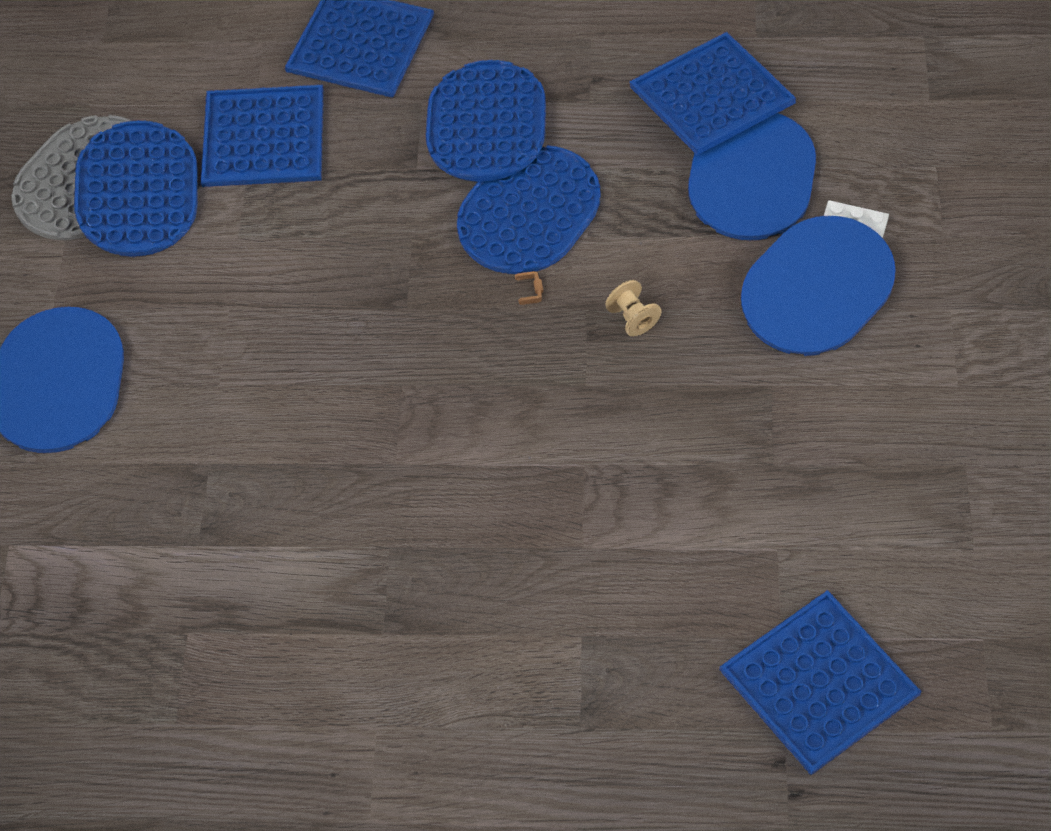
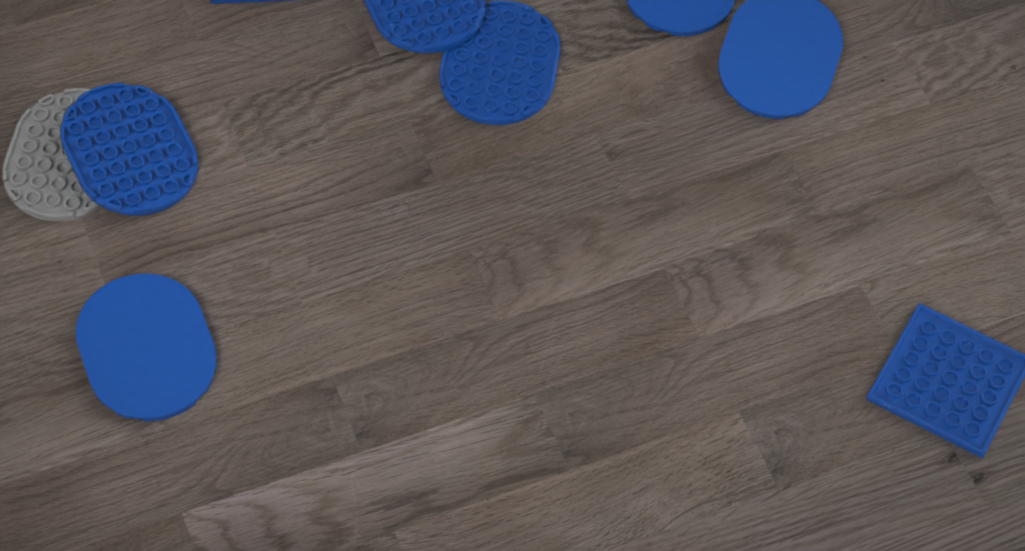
camera: 30 degrees left, 0 degrees up
(263, 136) = (221, 67): blue tile -> none
(537, 285) = (543, 125): medium nougat piece -> none
(638, 317) = (640, 120): tan hose -> none

